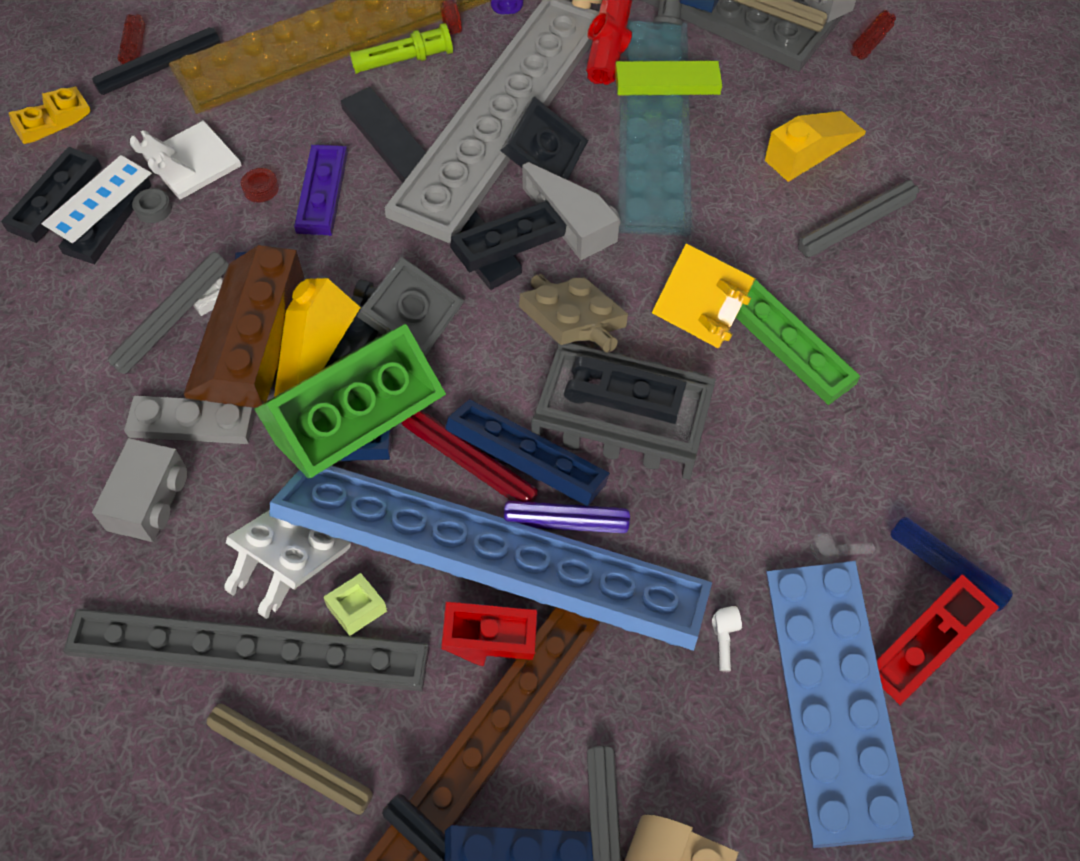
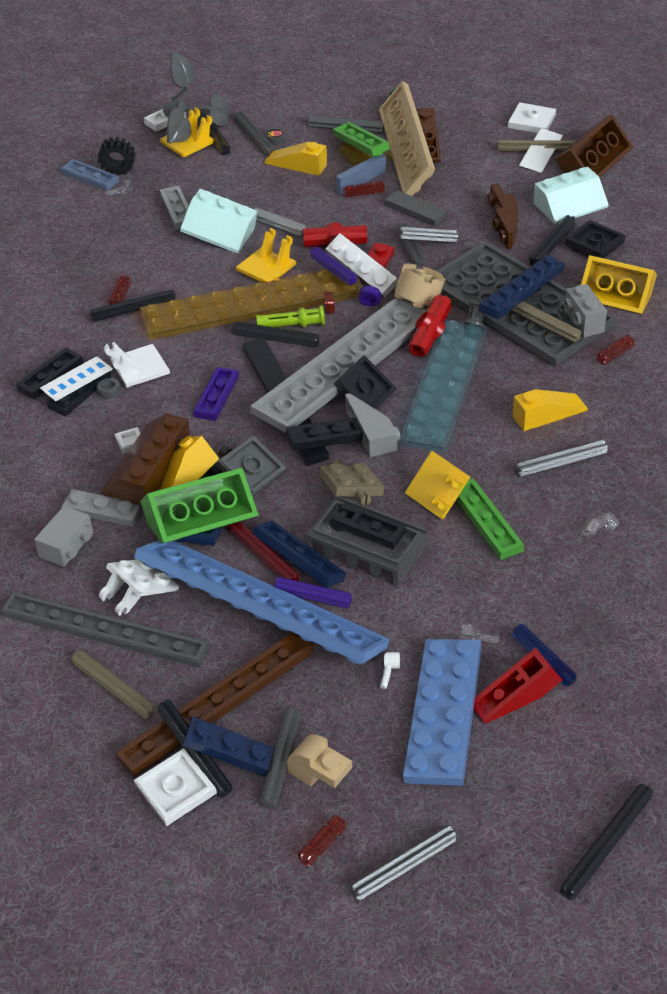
camera: 15 degrees right, 15 degrees down
(59, 111) = (65, 326): yellow slope -> none
(168, 313) = (103, 447): dark grey axle -> none
(259, 185) = (178, 386): clear red tile -> none
(355, 604) = (172, 614): yellowish green plate -> none
(384, 78) = (275, 334): none -> black axle
(486, 630) = (241, 635): red slope -> none
(668, 78) = (459, 356): lime tile -> none
(958, 311) = (598, 522): none -> clear arm

